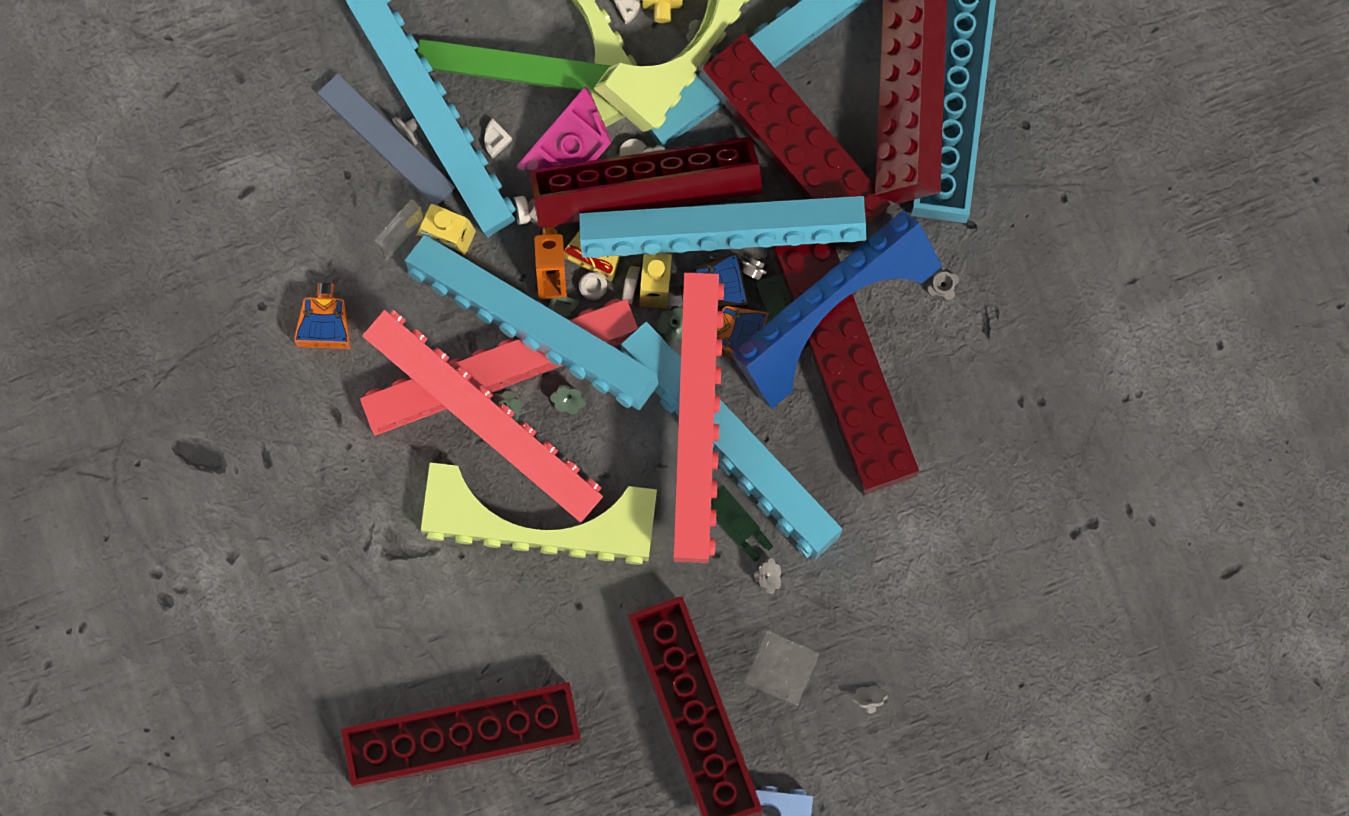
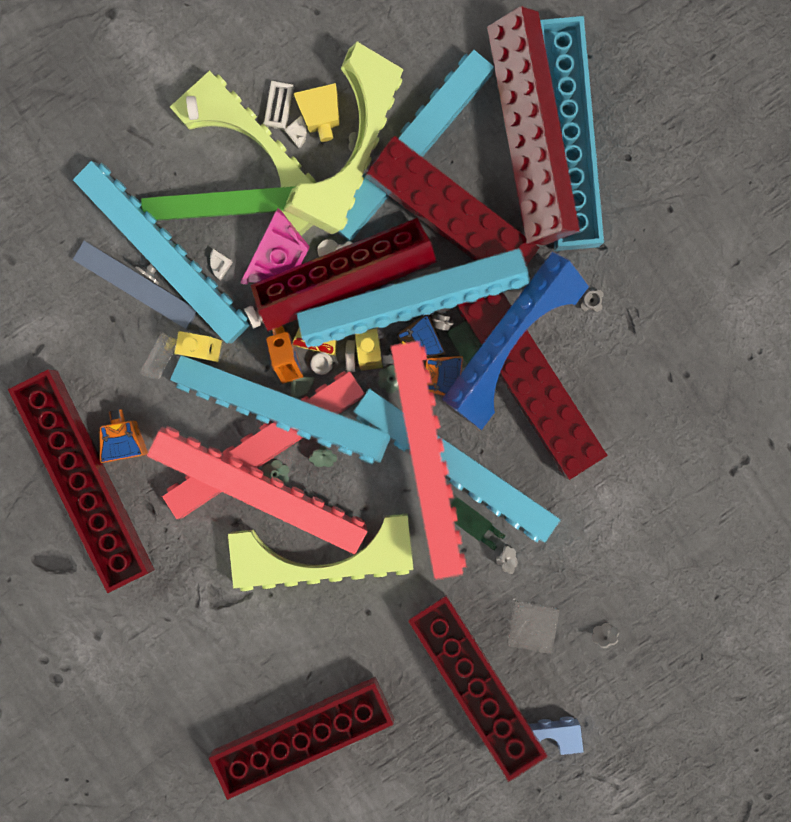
camera: 10 degrees left, 10 degrees up
(265, 358) = (81, 480): none -> dark red brick

